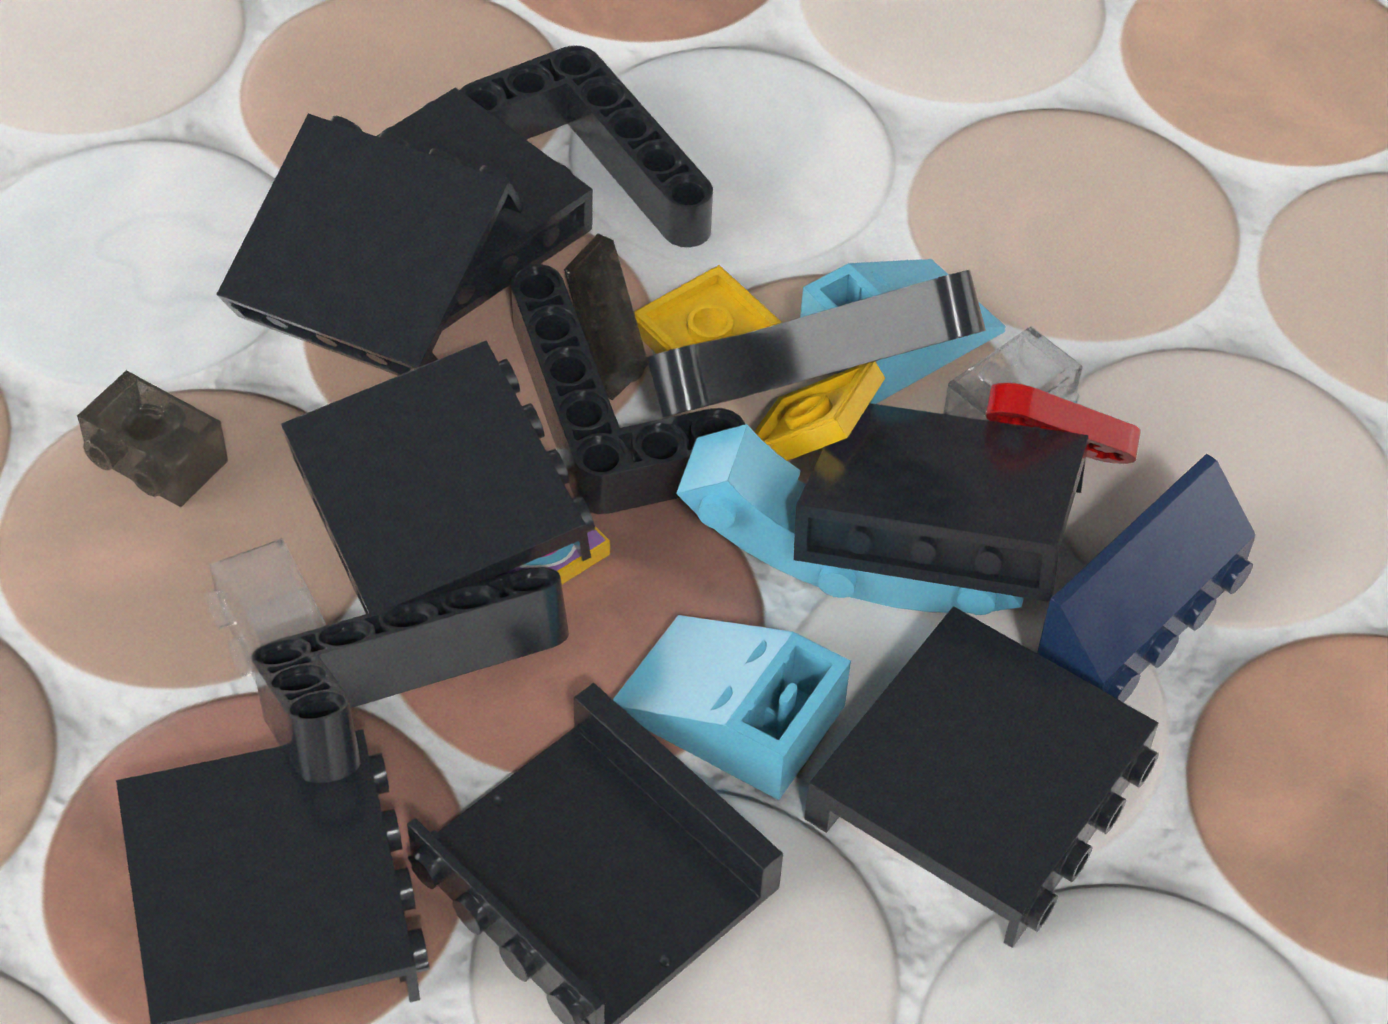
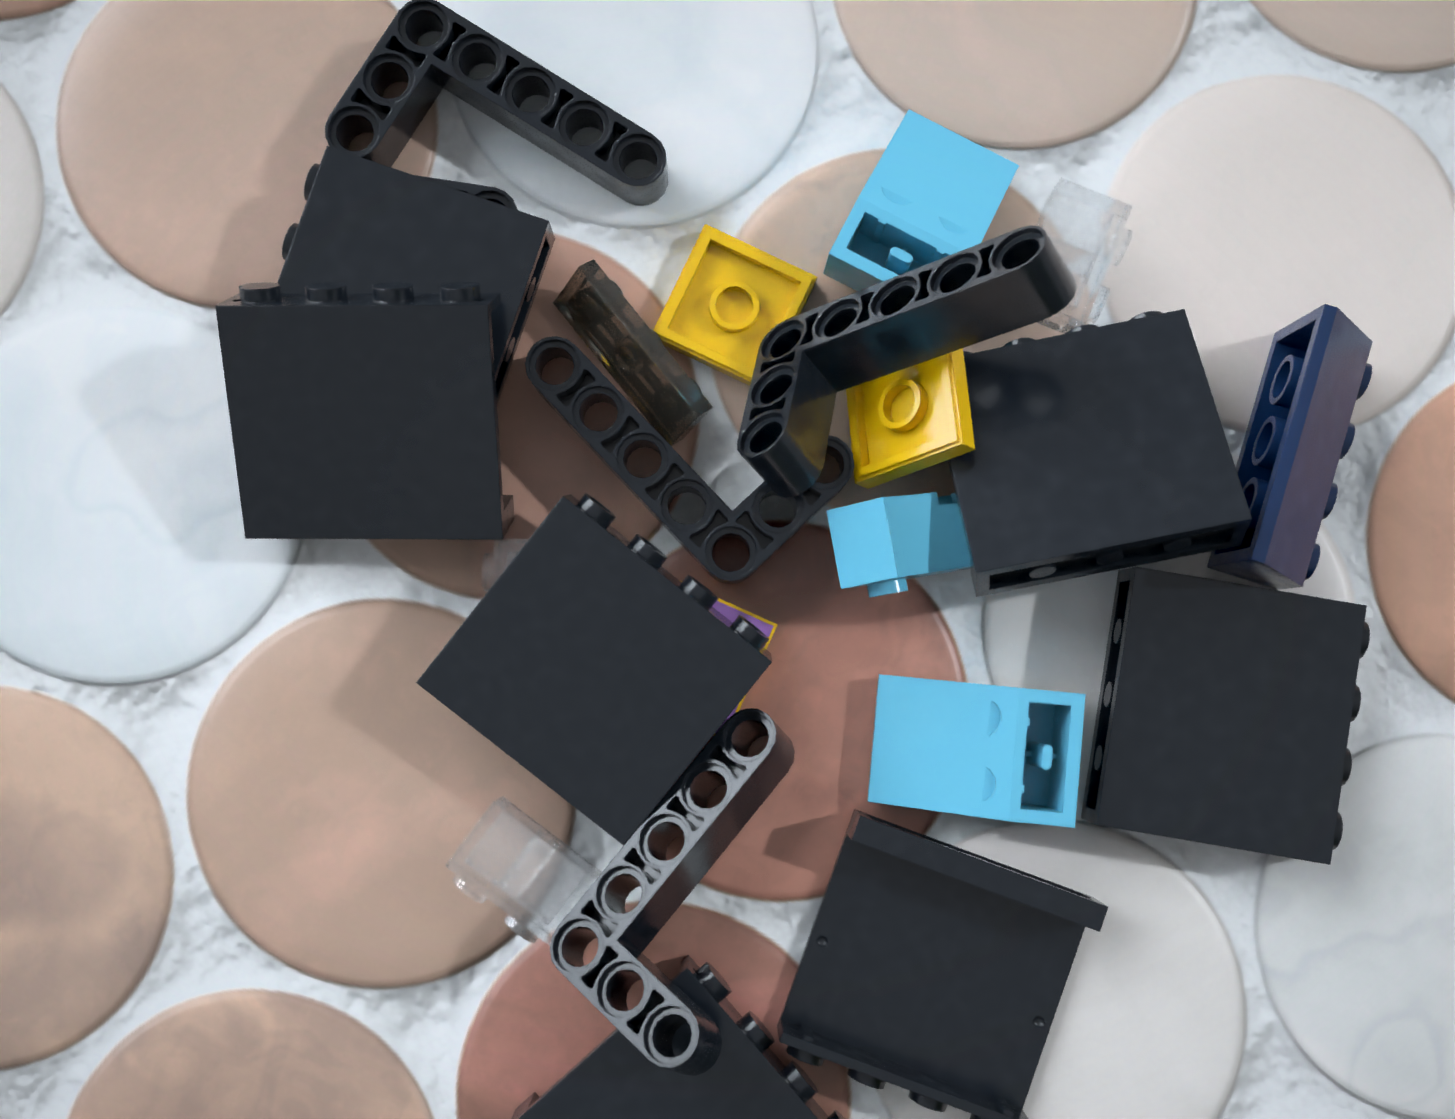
camera: 30 degrees left, 35 degrees up
(152, 438) = (250, 721): clear smoke brick -> none
(1108, 438) = (1143, 293): red beam -> none

